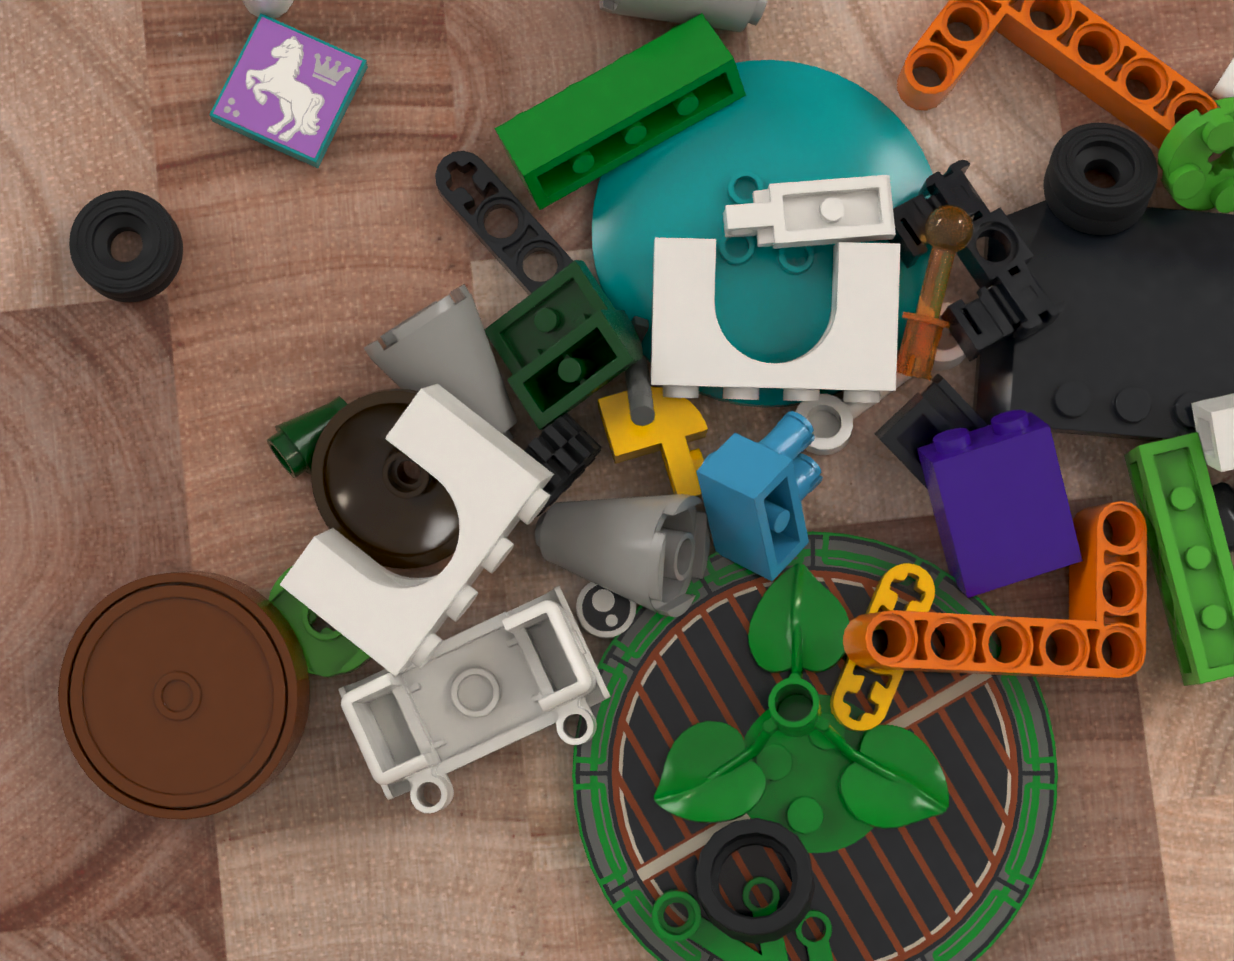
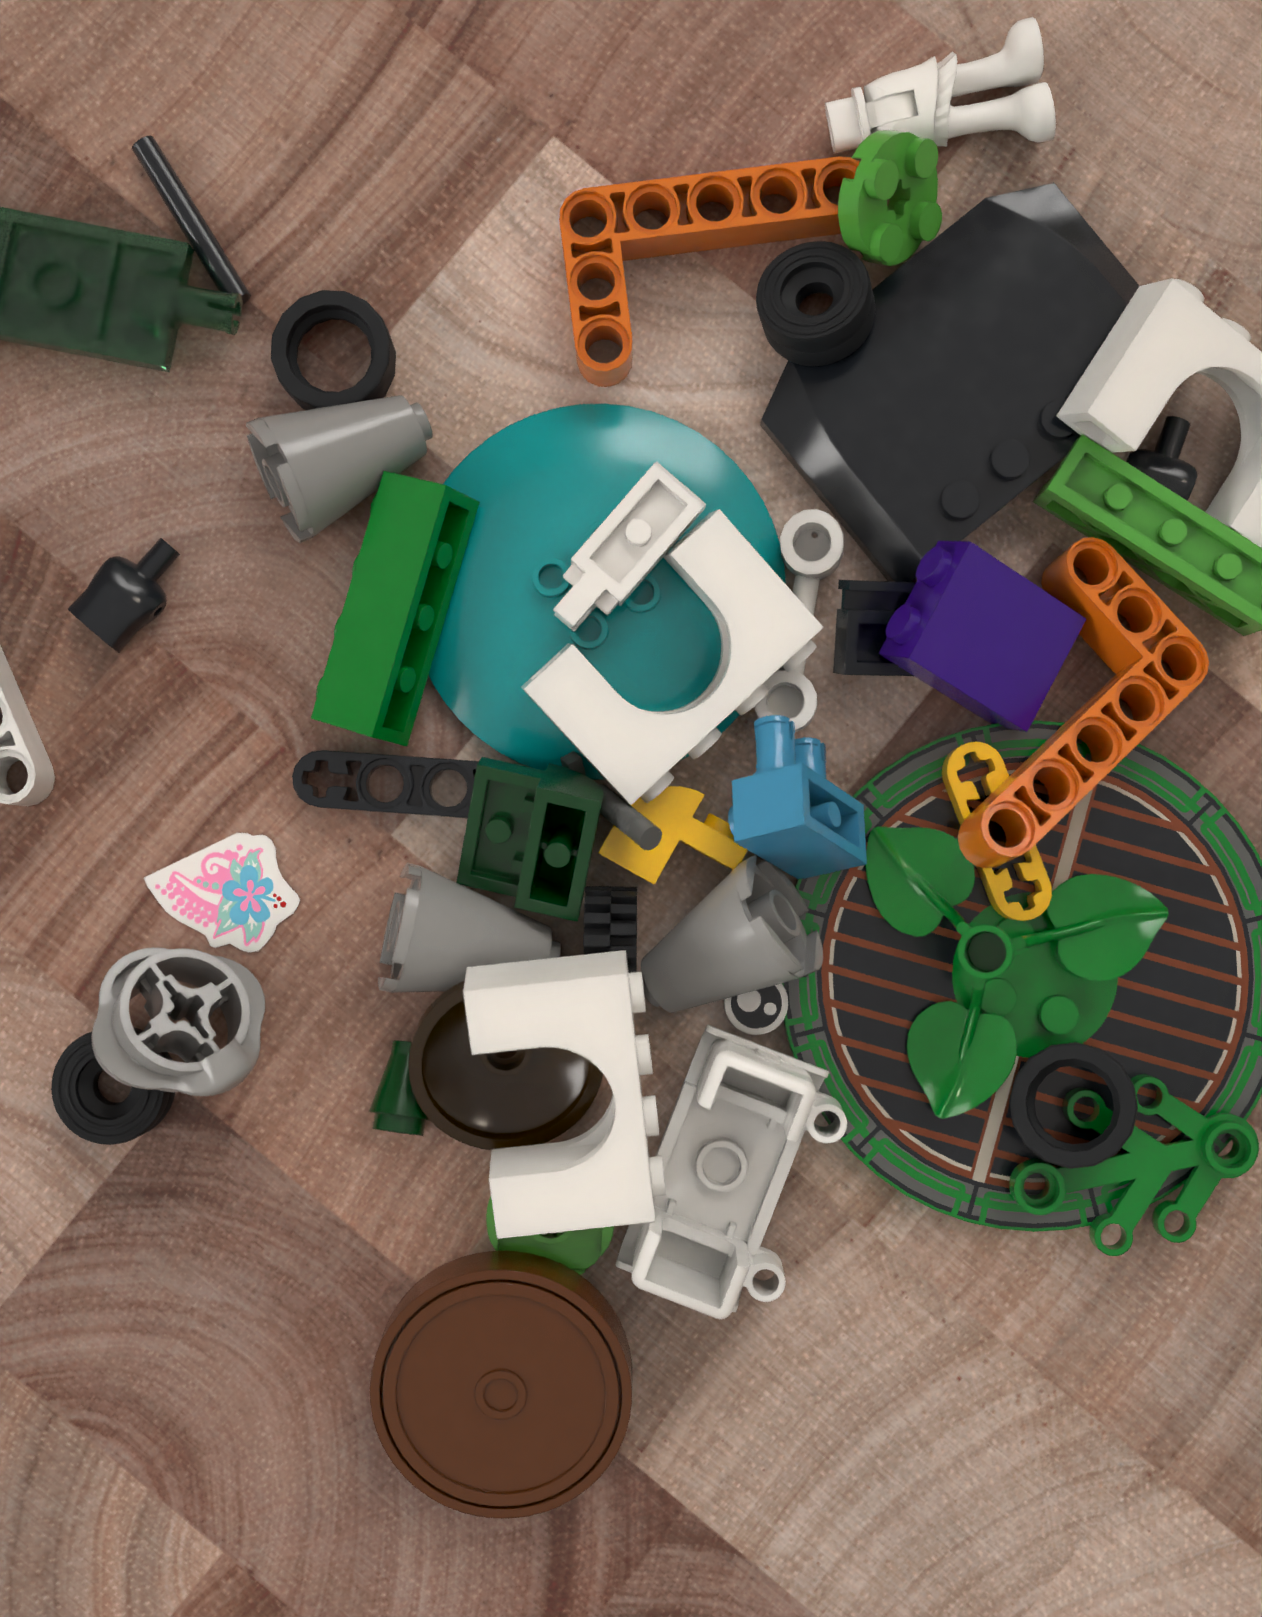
camera: 35 degrees left, 5 degrees up
(196, 253) = (155, 975): none -> light grey piece
(289, 90) = (119, 839): tile -> none
(328, 203) = (228, 891): none -> sticker
(947, 231) = (743, 462): clear orange pin -> none
(1015, 290) = (839, 457): black piece -> none

